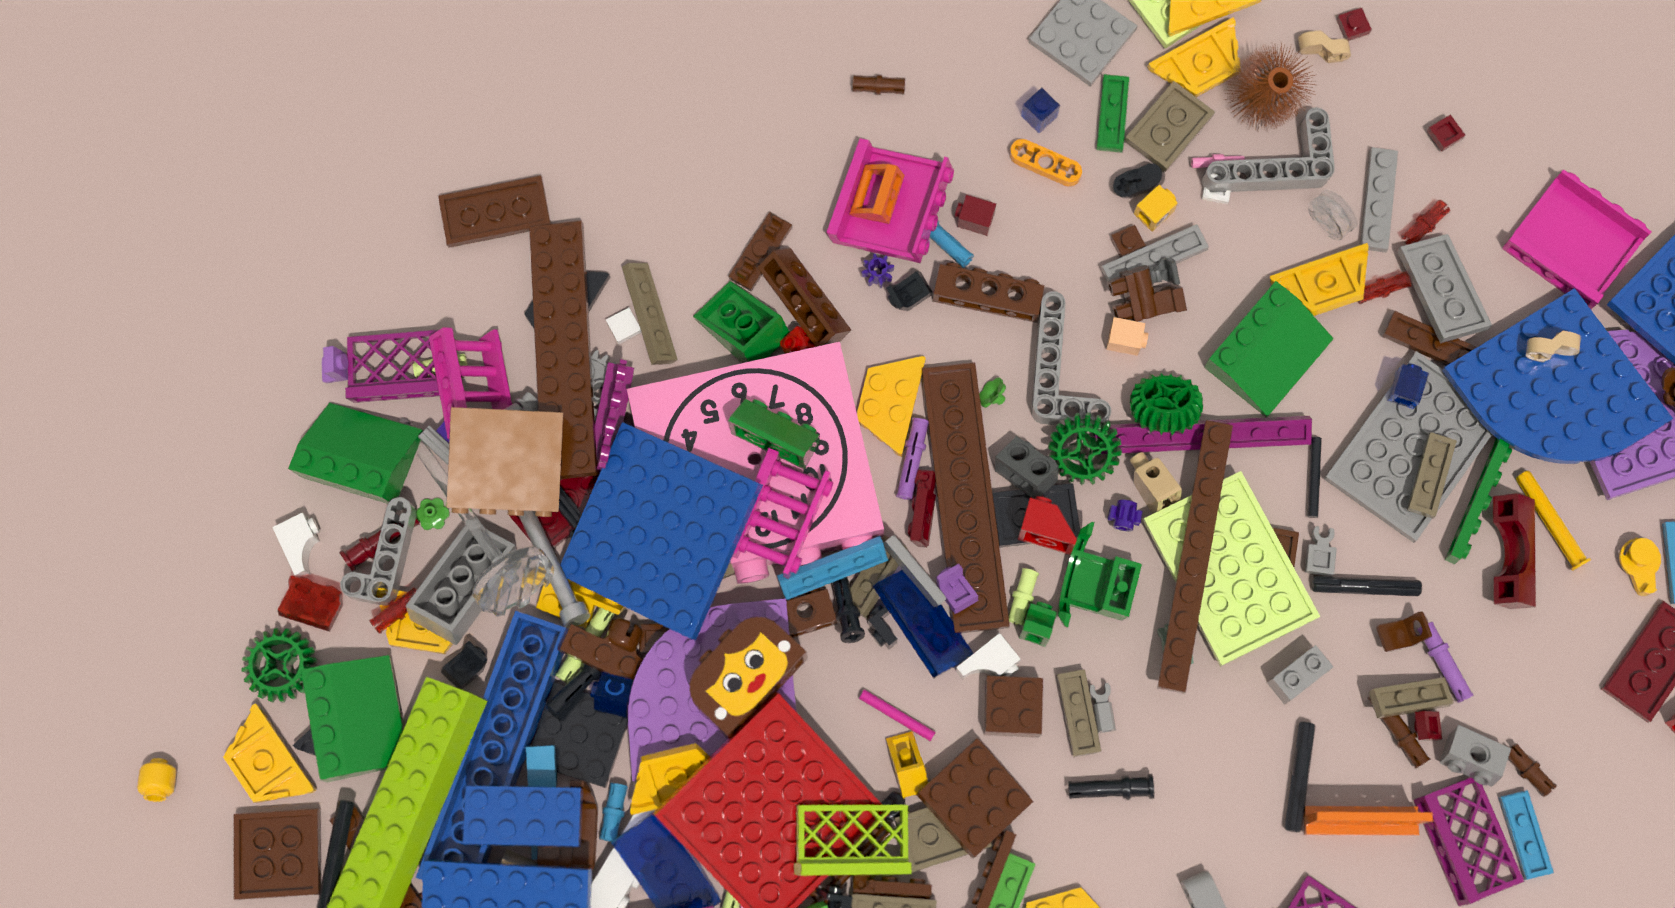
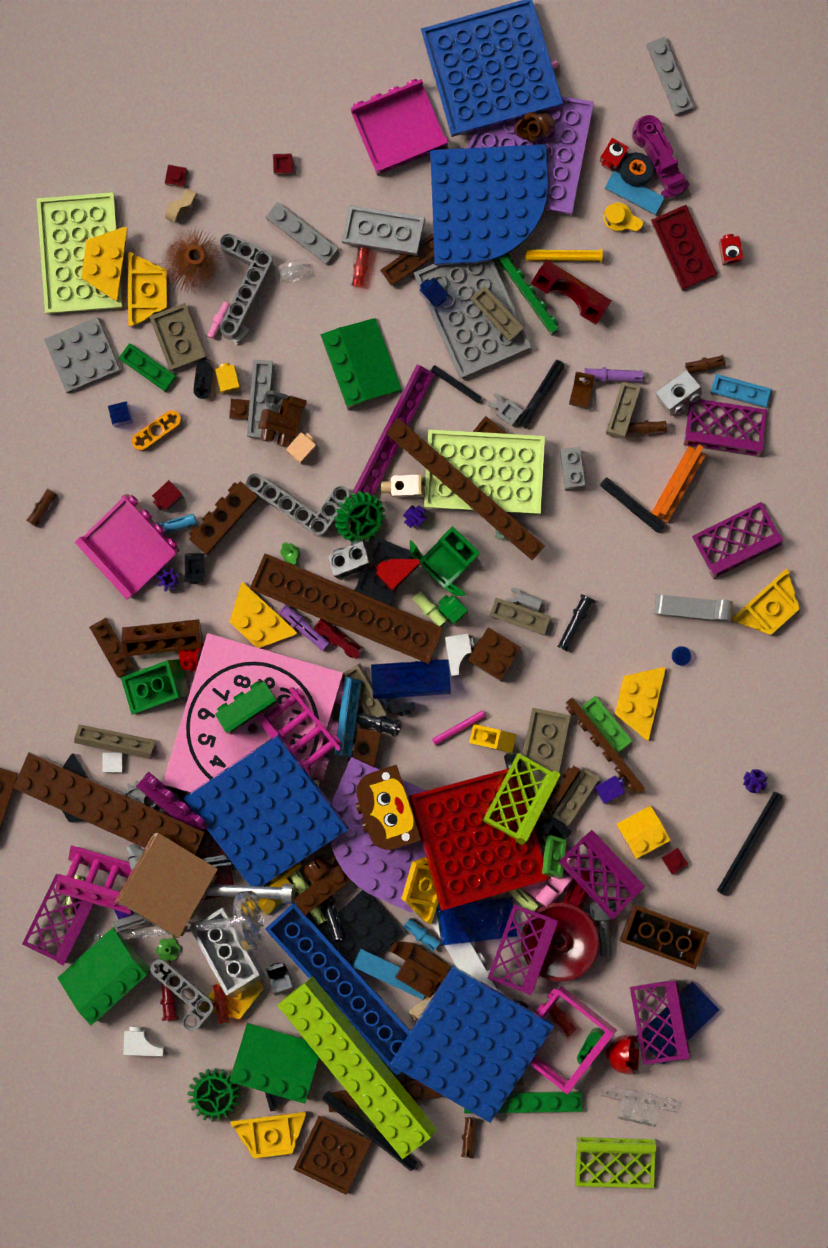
camera: 60 degrees left, 10 degrees up
(156, 780) = (244, 1207): yellow head -> none
(311, 603) = (185, 1055): clear red bracket -> none
(334, 365) = (36, 962): medium lavender bracket -> none
(523, 816) = (397, 990): blue brick -> none
(612, 694) = (349, 896): clear blue brick -> none
(886, 195) = (123, 546): orange tile -> none
(914, 571) = (378, 668): light grey tile -> none
(956, 588) = (403, 648): medium lavender bracket -> none
(974, 798) = (536, 709): reddish brown plate -> none
(1166, 403) = (356, 446): green gear -> none
(1328, 281) = (337, 300): yellow wing -> none
(1426, 222) = (334, 214): clear red pin -> none
(1428, 725) = (645, 409): dark red plate -> none
(1563, 343) = (459, 197): tan piece -> none

